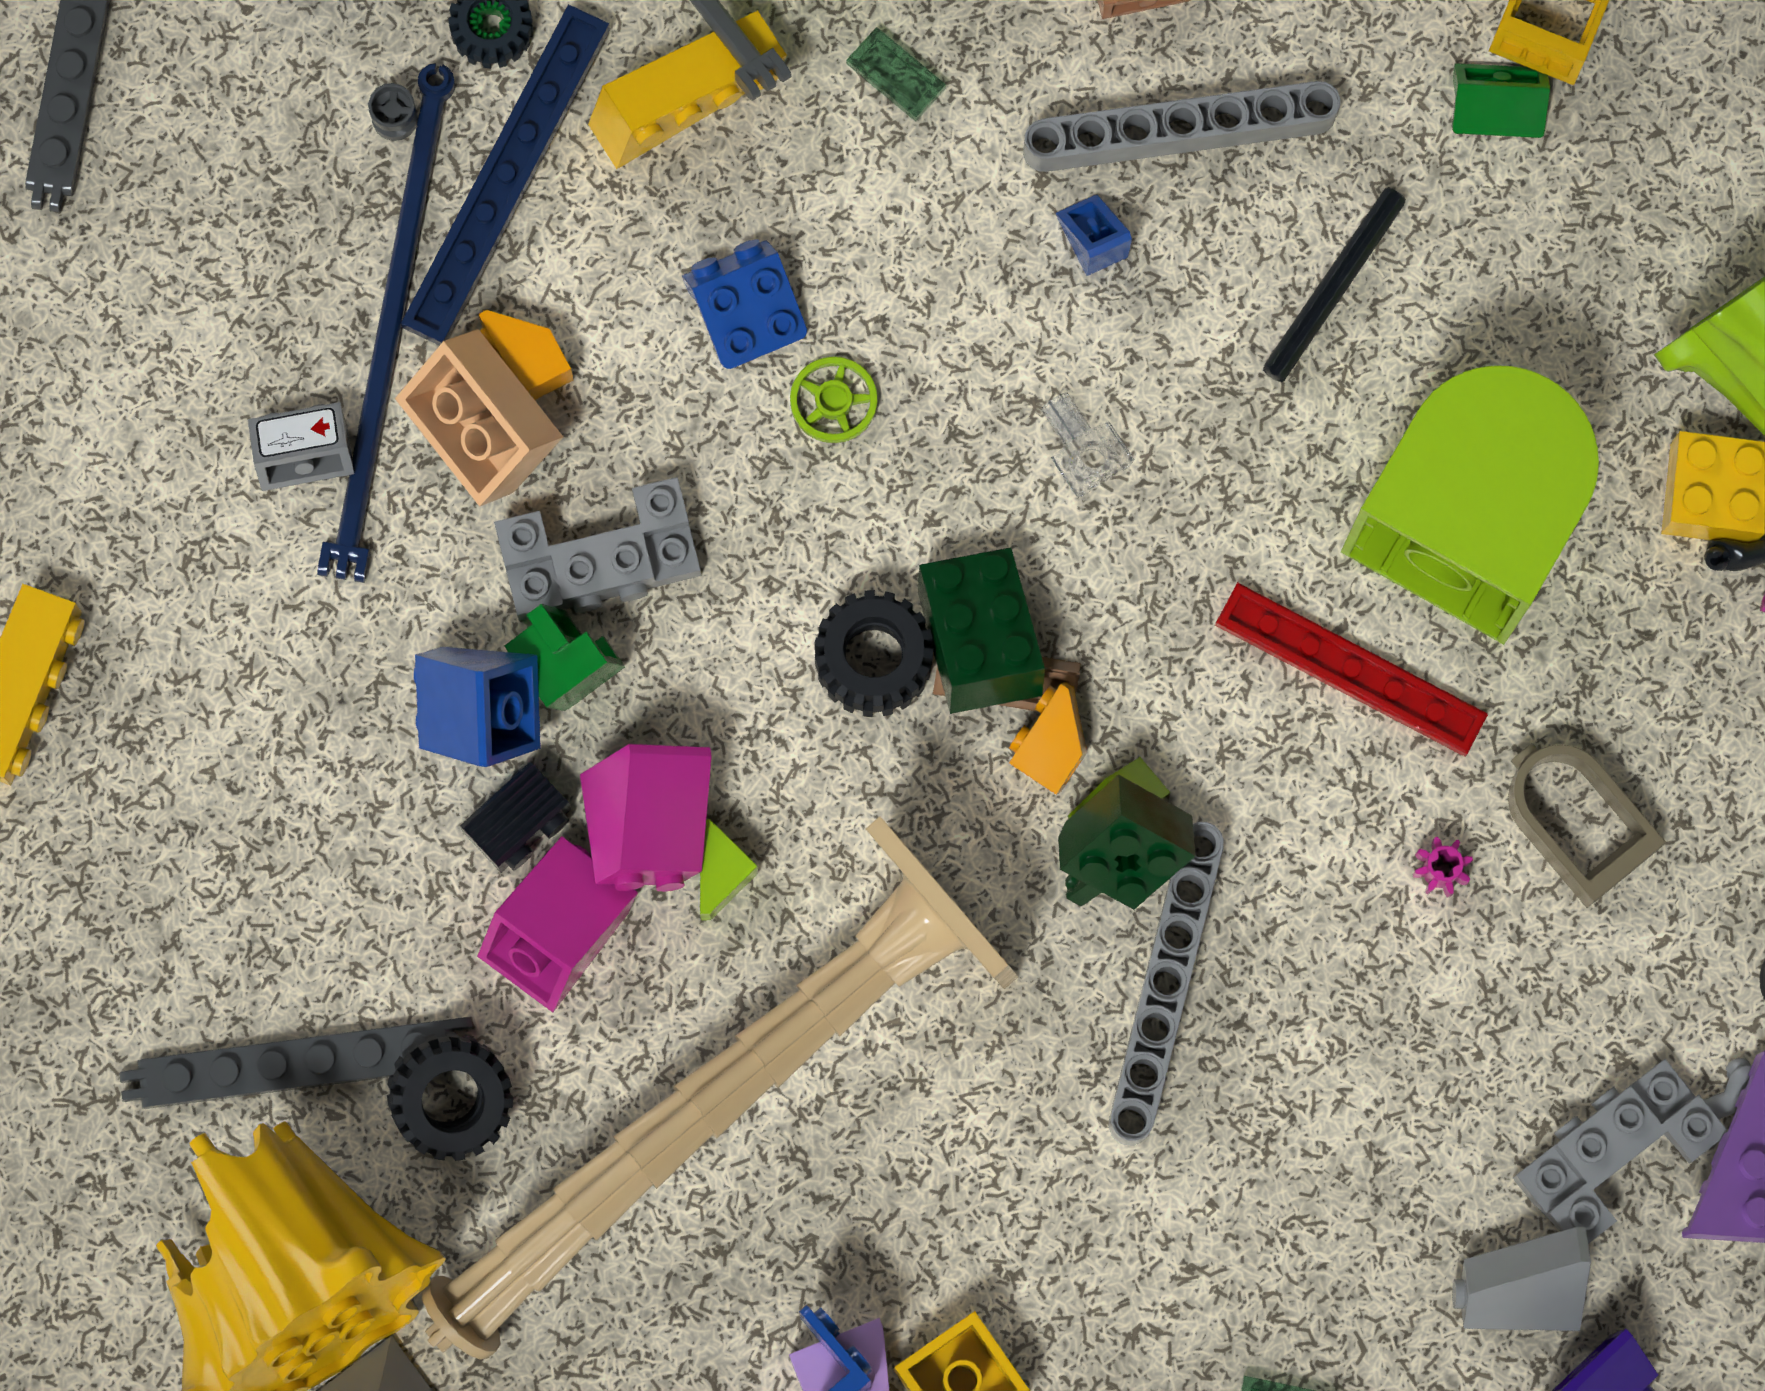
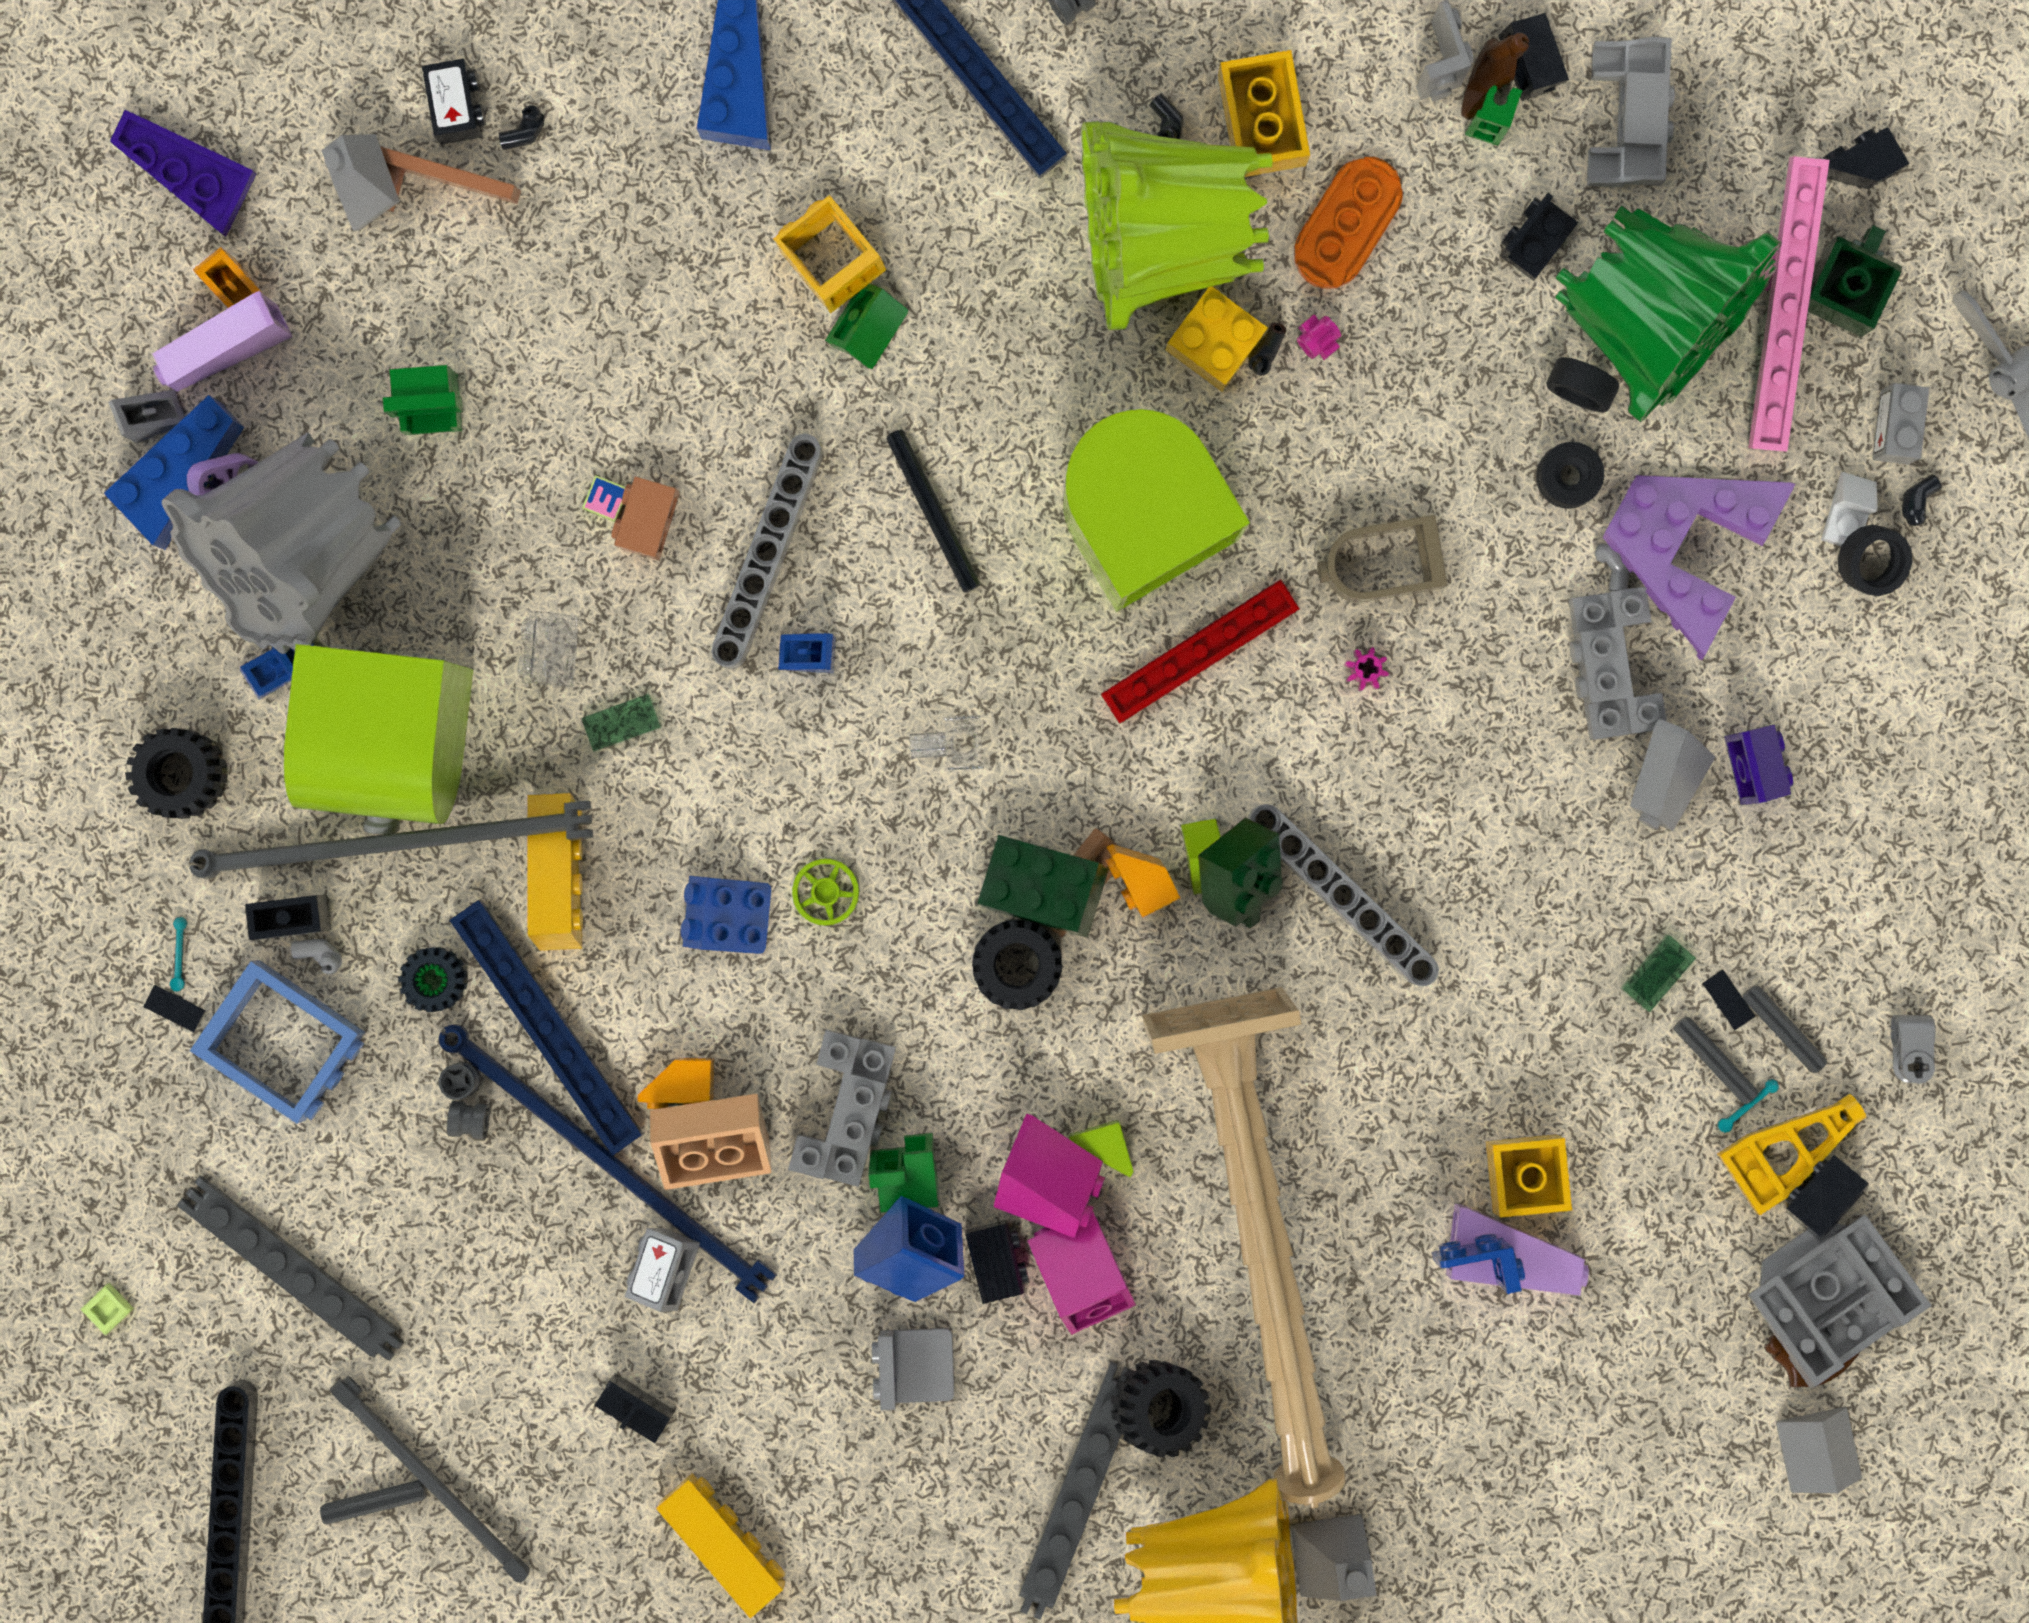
camera: 55 degrees left, 10 degrees up
(122, 505) = (634, 1408): none -> black panel
(341, 790) = (913, 1366): none -> light grey bracket
(353, 145) = (468, 1120): none -> dark grey wheel

